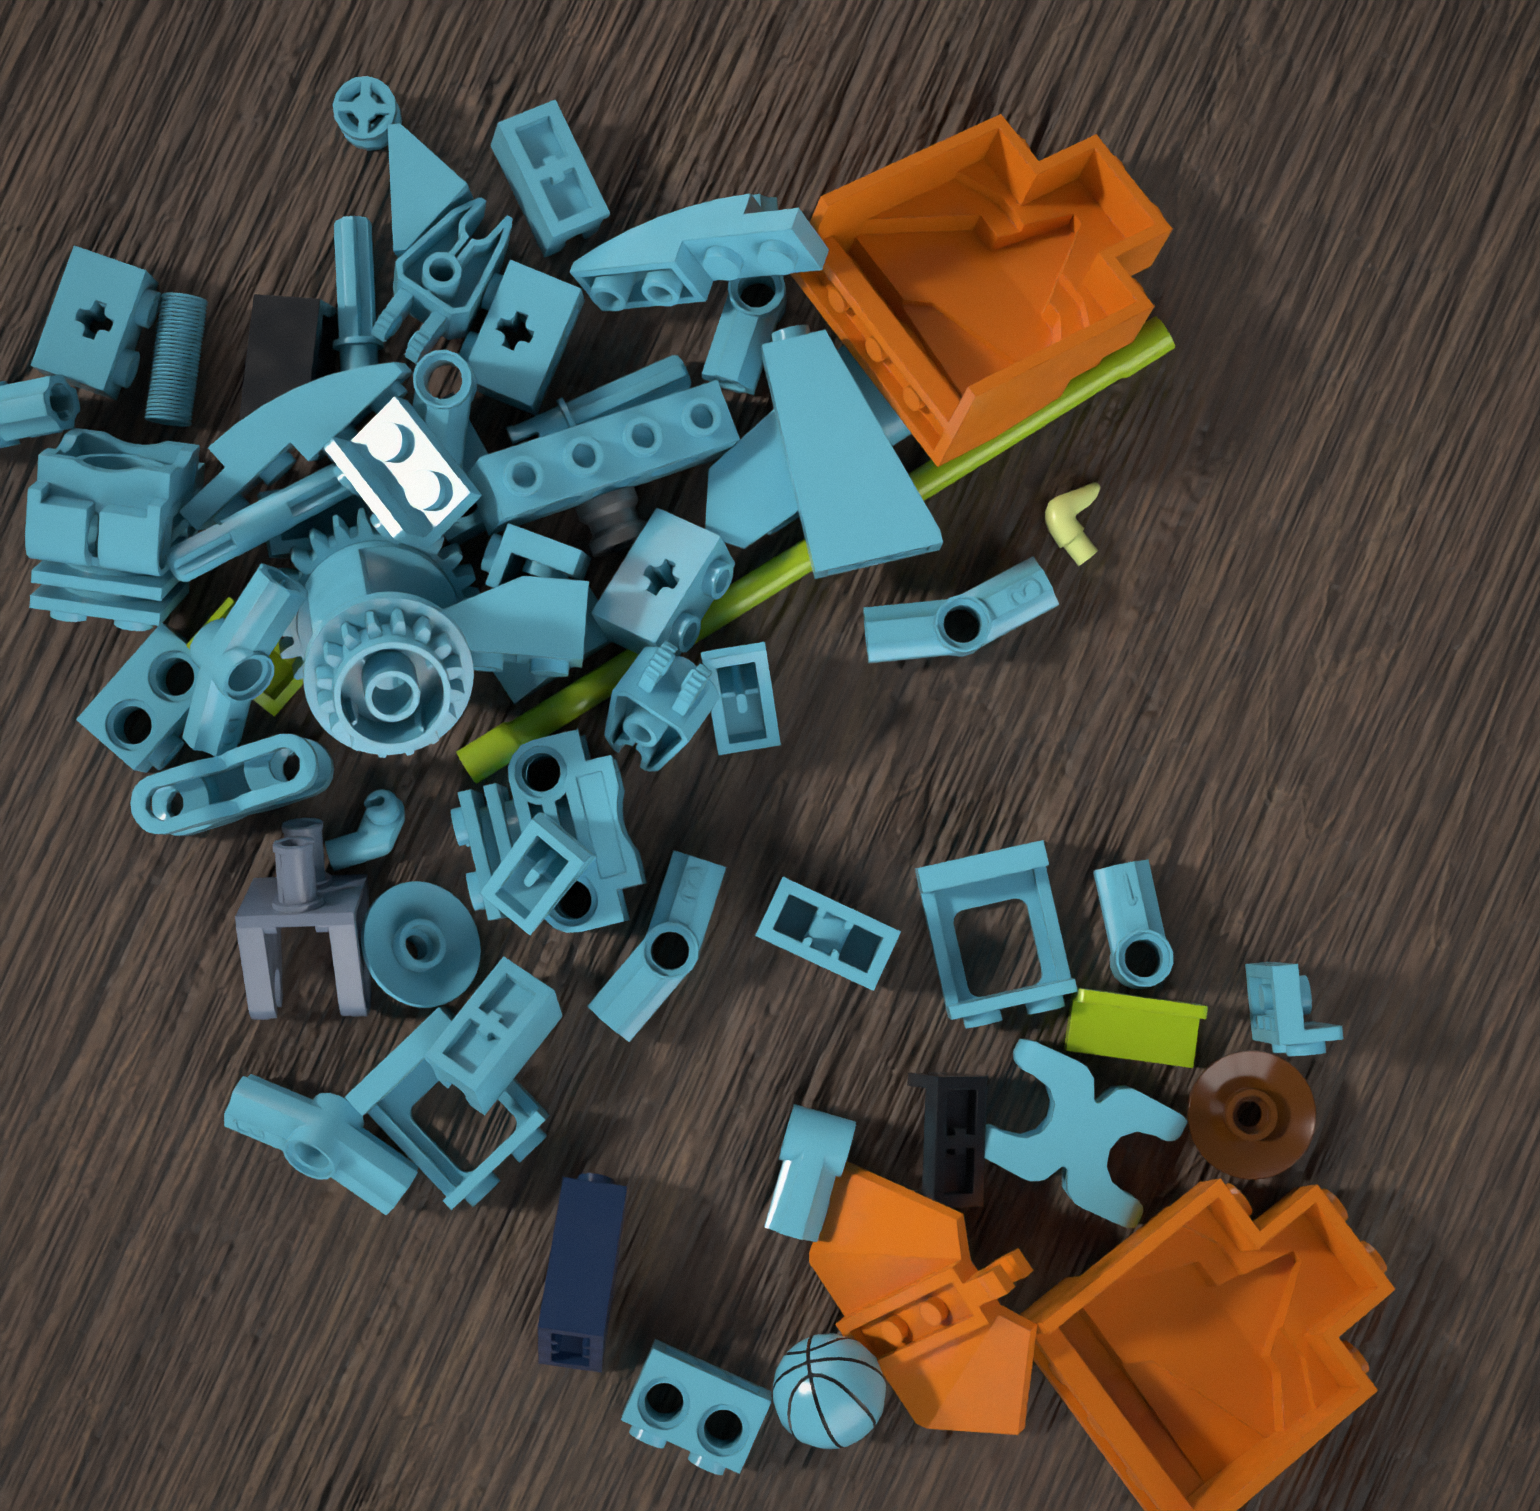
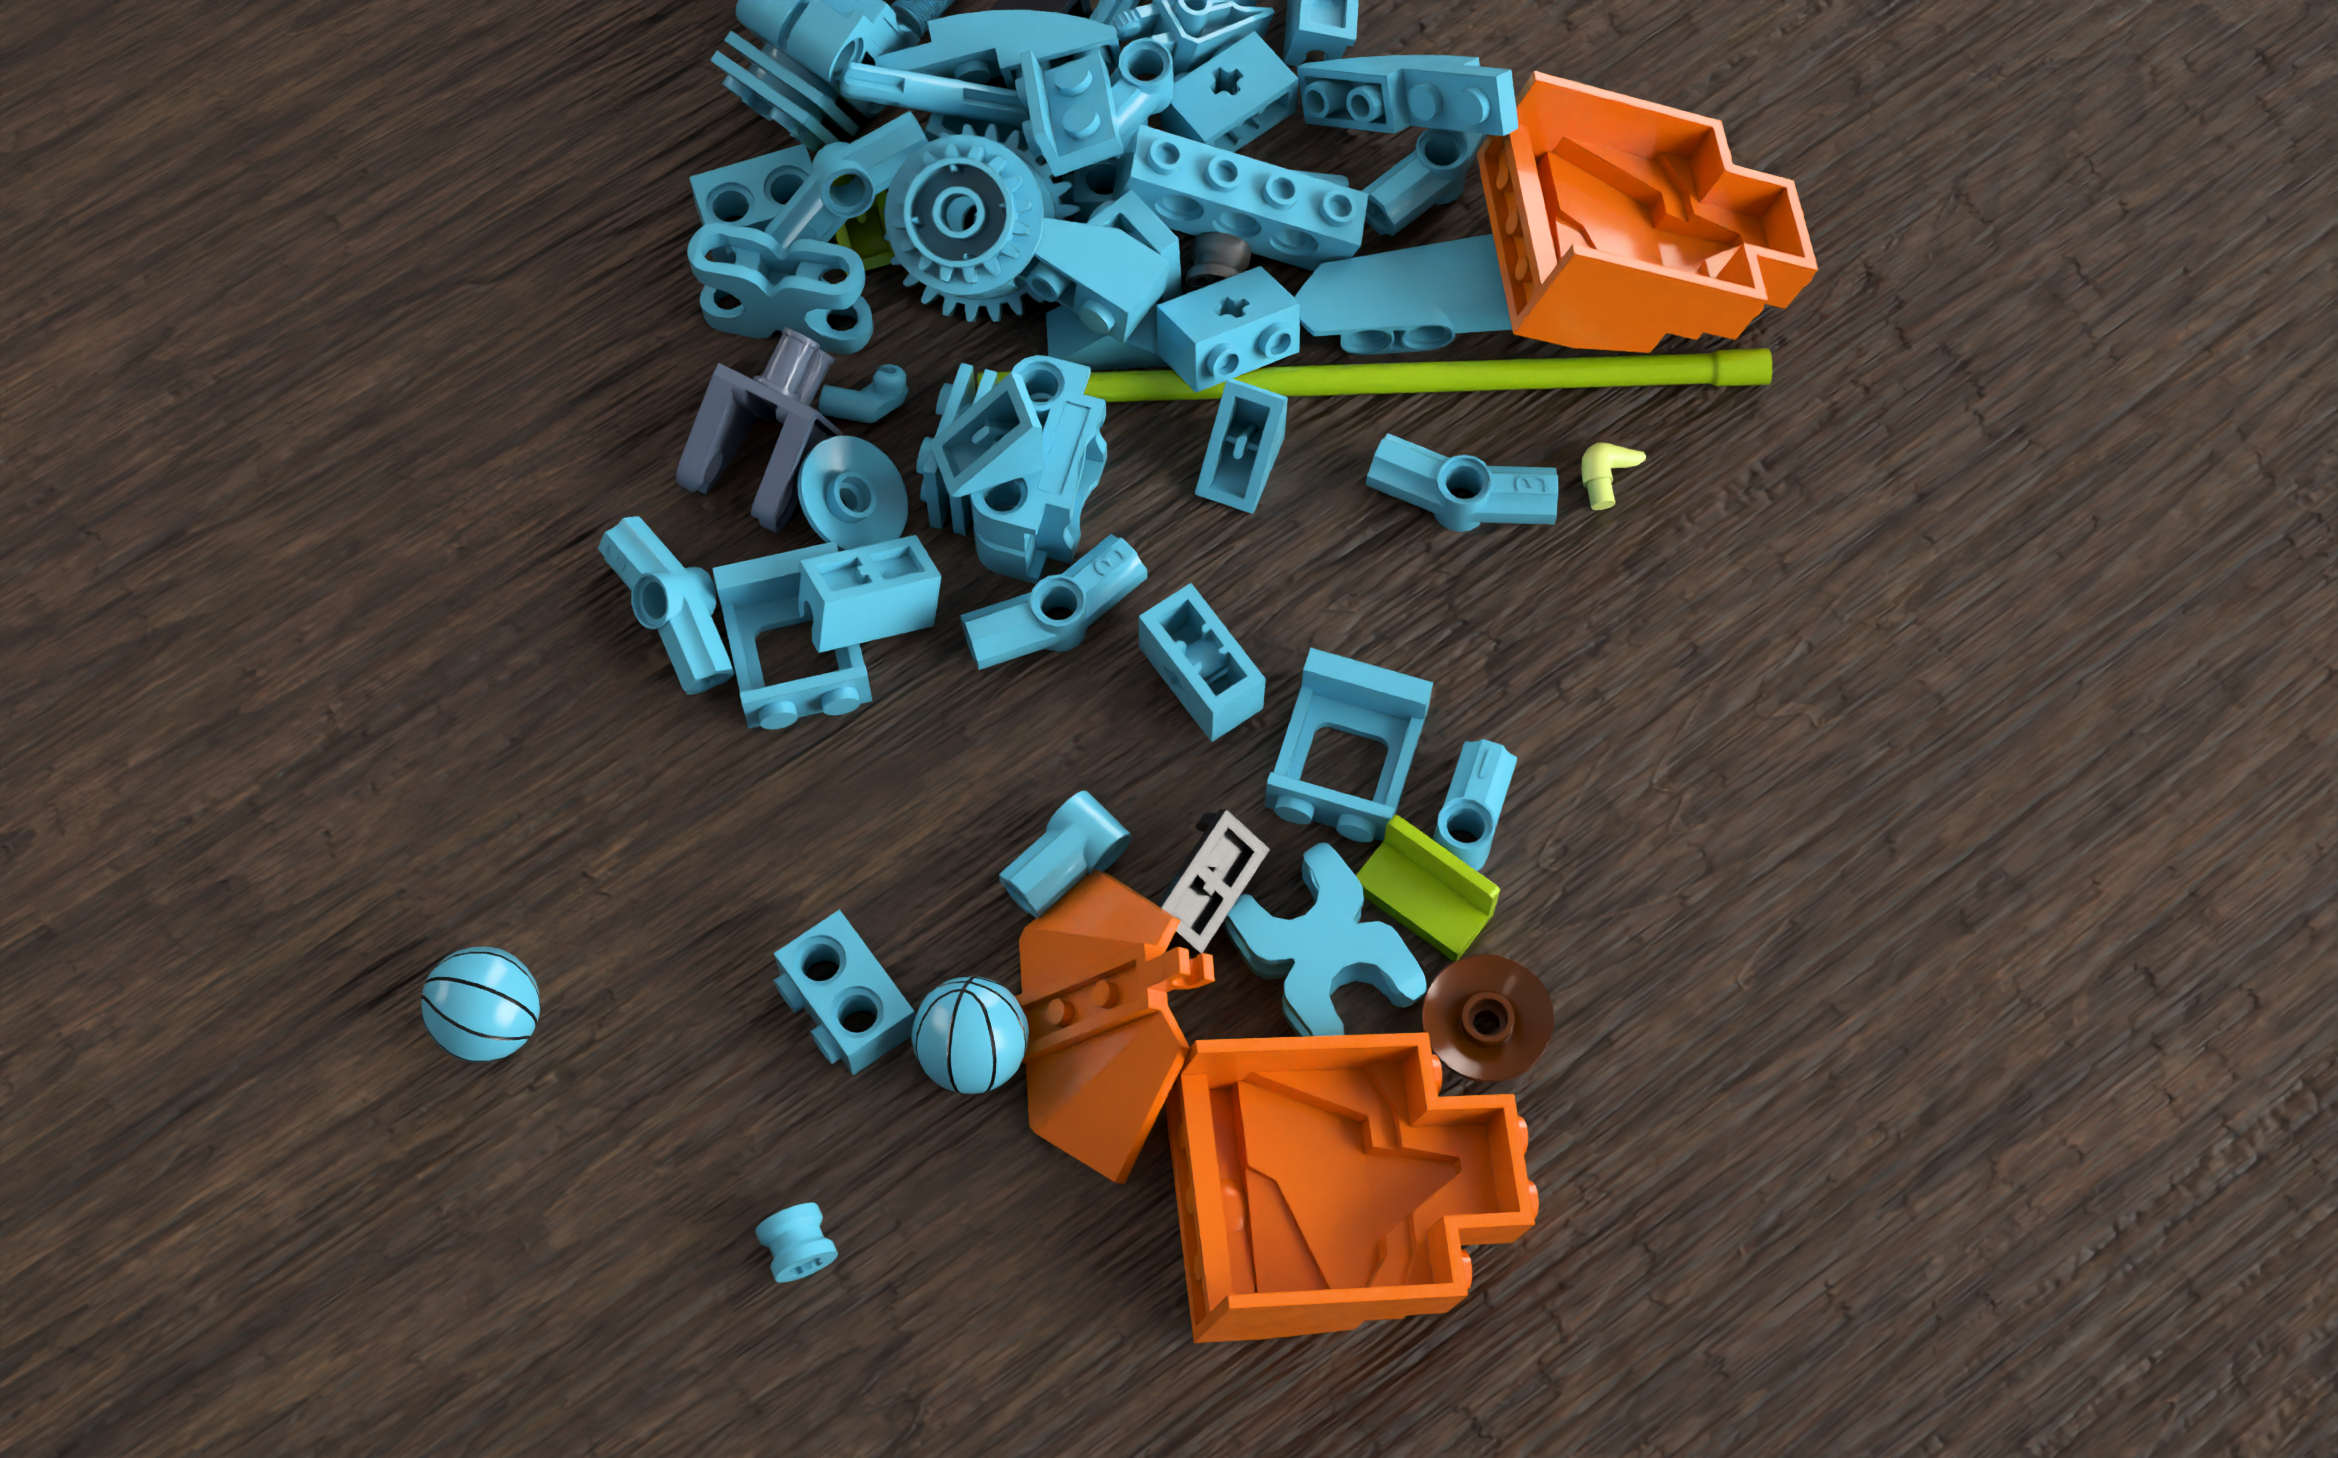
camera: 30 degrees right, 20 degrees down
(581, 1273) = (813, 828): dark blue slope -> none
(659, 705) = (1168, 401): medium azure hinge -> none
(843, 470) = (1432, 306): medium azure slope -> none
(1277, 1009) = (1565, 954): medium azure bracket -> none

